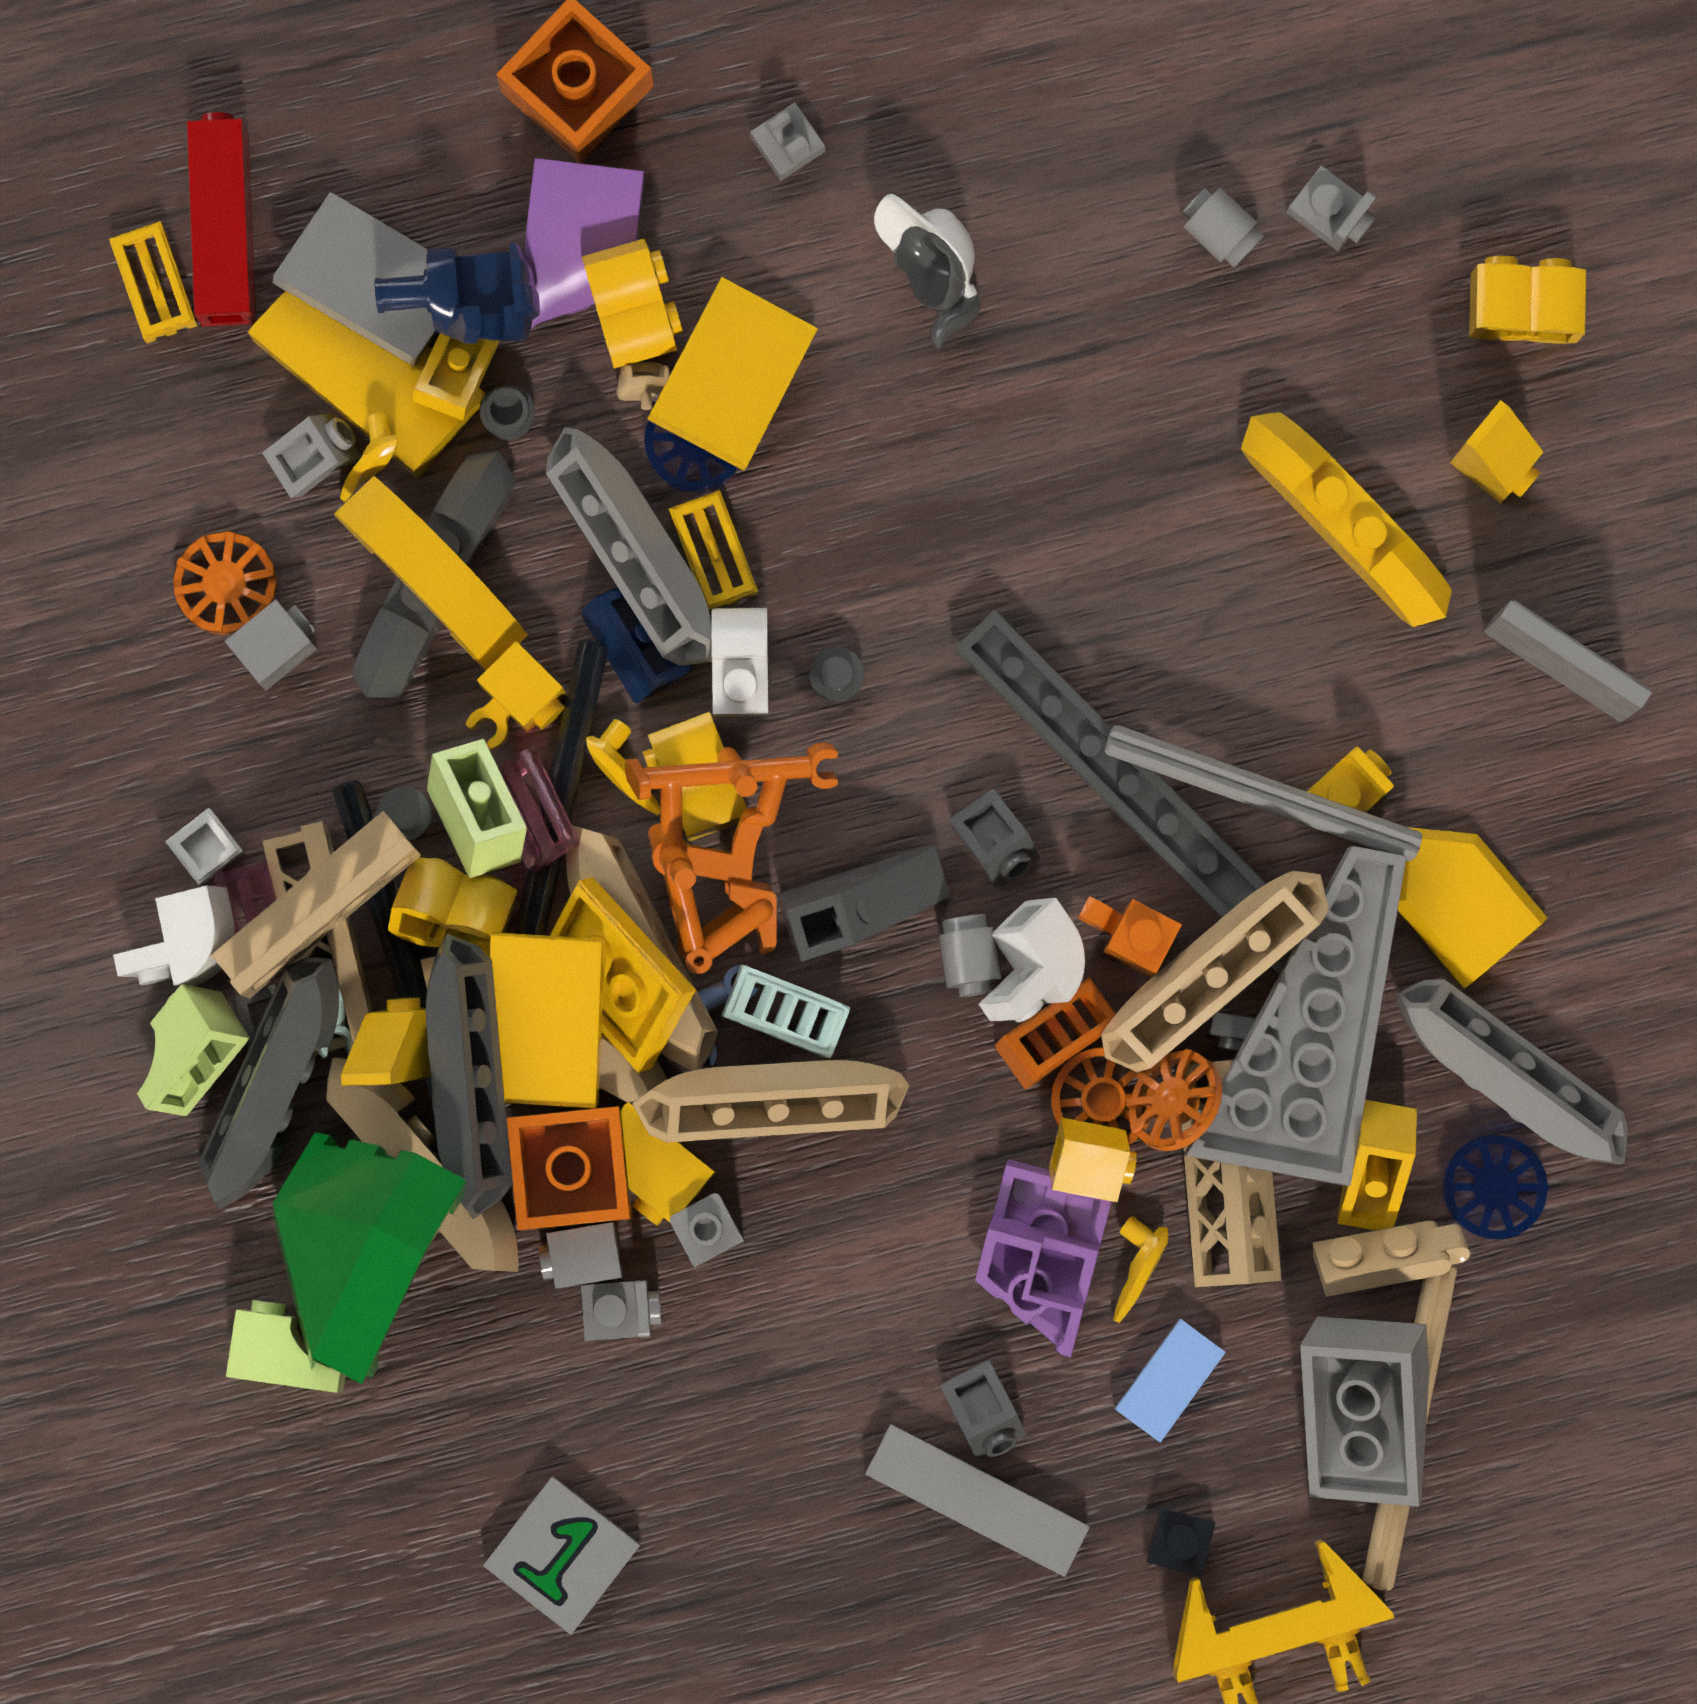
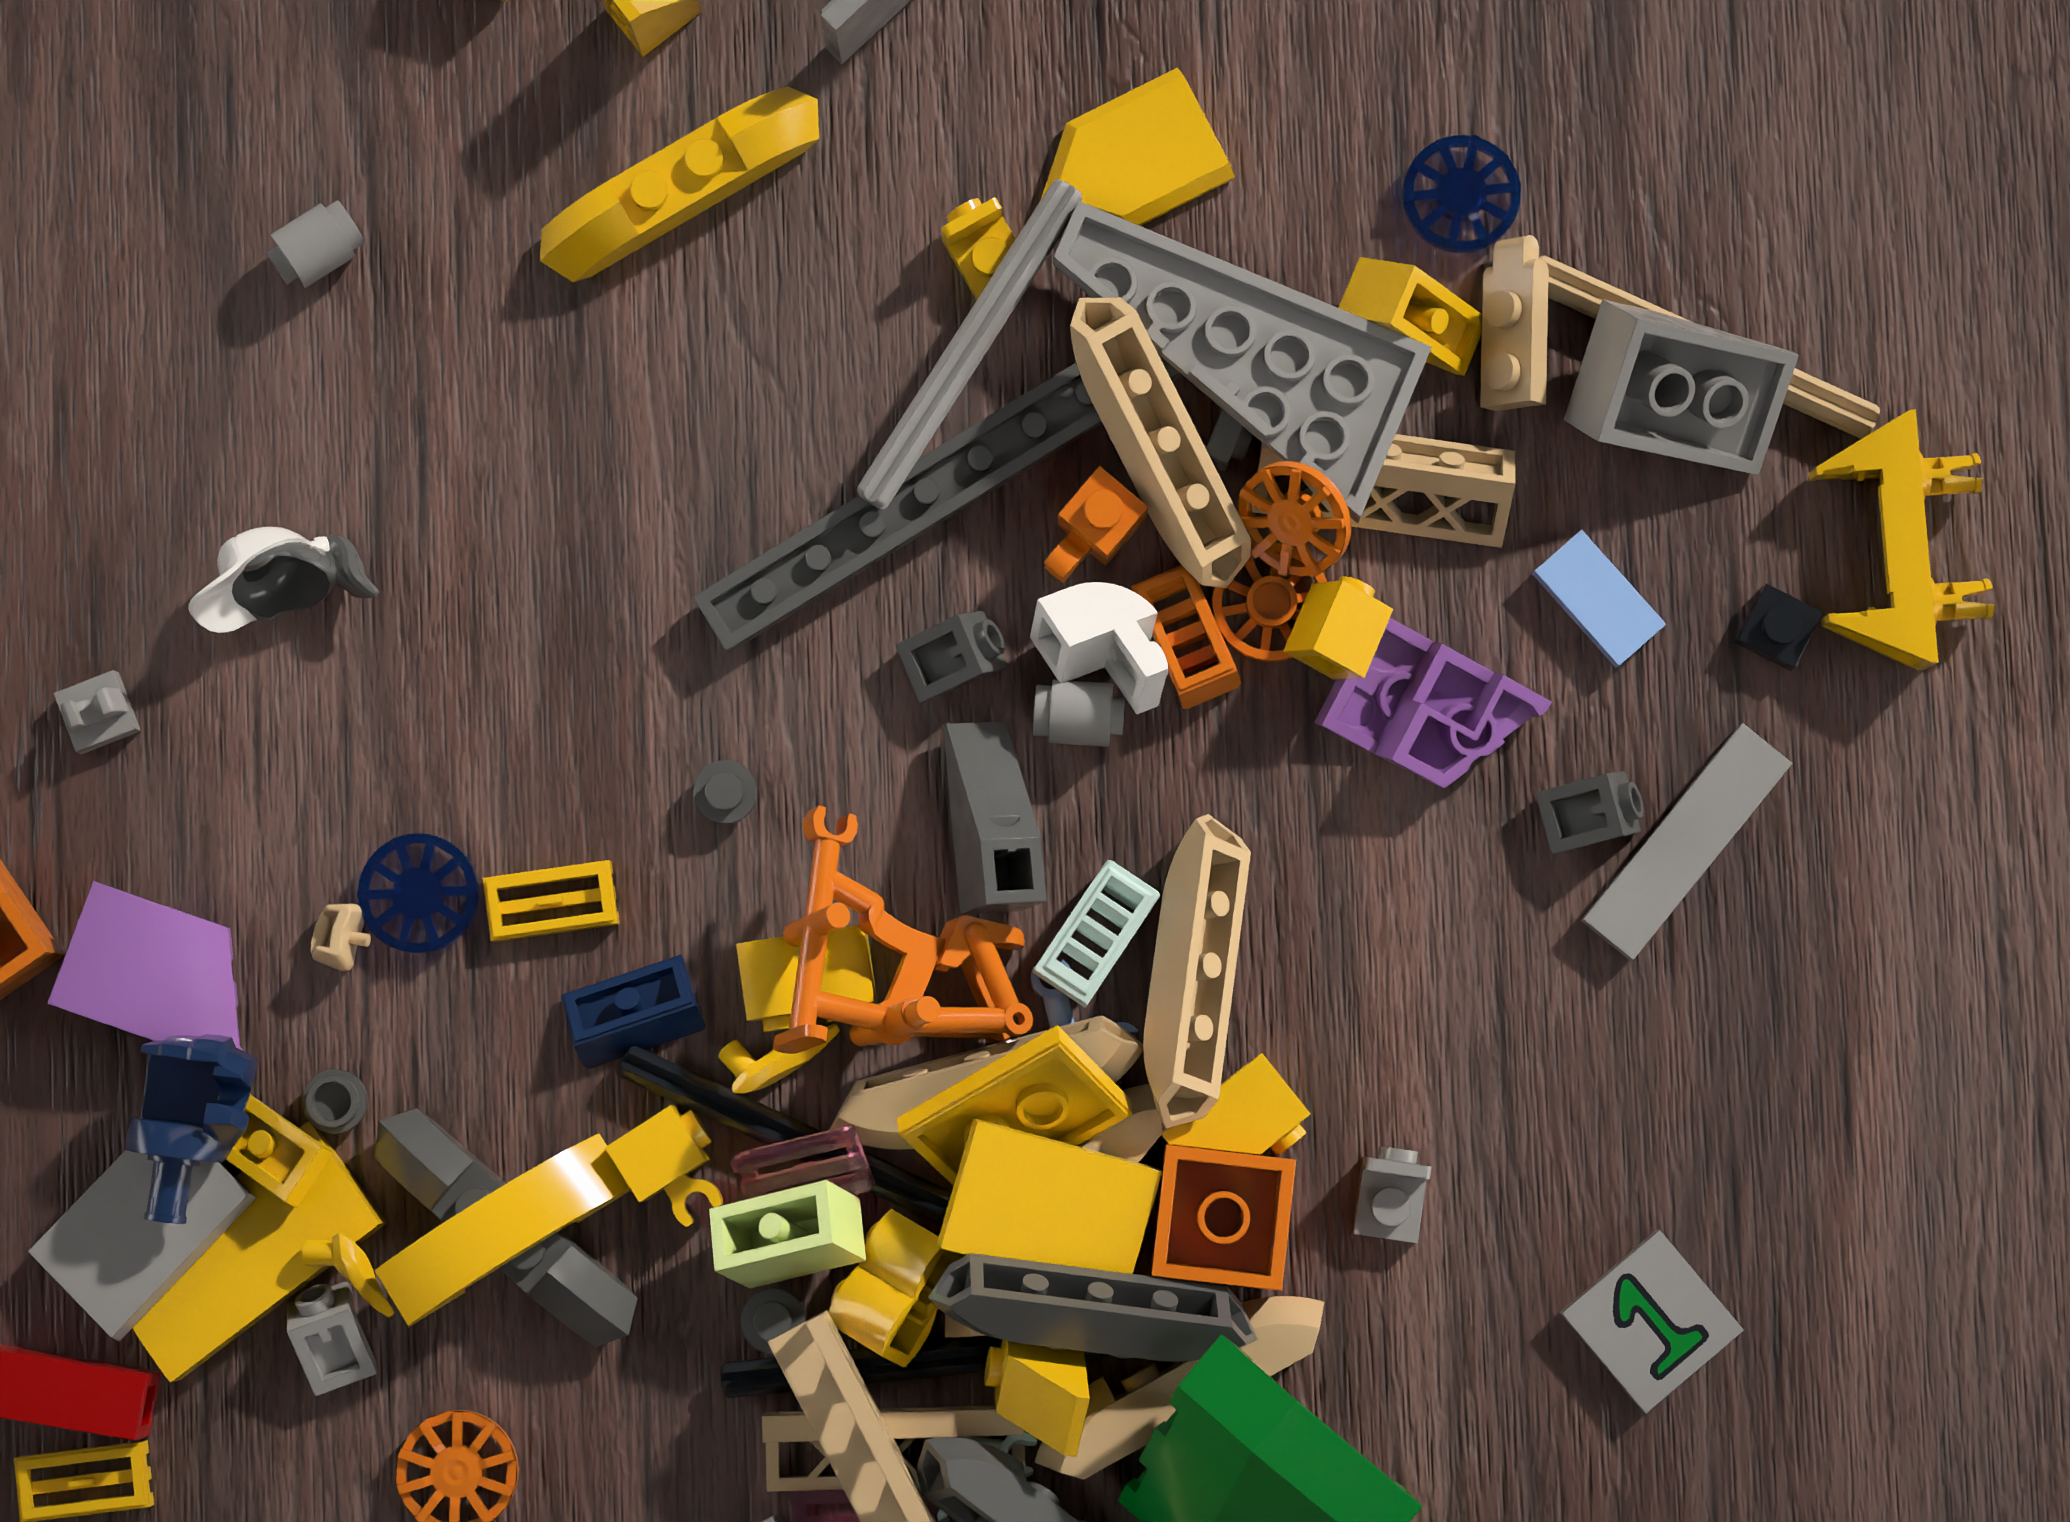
camera: 75 degrees left, 0 degrees up
(273, 643) = (540, 1430): light grey brick -> none
(581, 1255) = (1323, 1225): light grey brick -> none
(630, 302) = (242, 930): yellow brick -> none
(632, 547) = (525, 991): light grey brick -> none
(706, 1229) = (1325, 1076): light grey bracket -> none
(732, 373) = (352, 832): yellow tile -> none
(740, 662) = (687, 896): white brick -> none
(1141, 1268) = (1471, 604): yellow bar -> none
(1333, 209) = (325, 117): light grey bracket -> none
(1513, 1072) = (1340, 144): light grey brick -> none

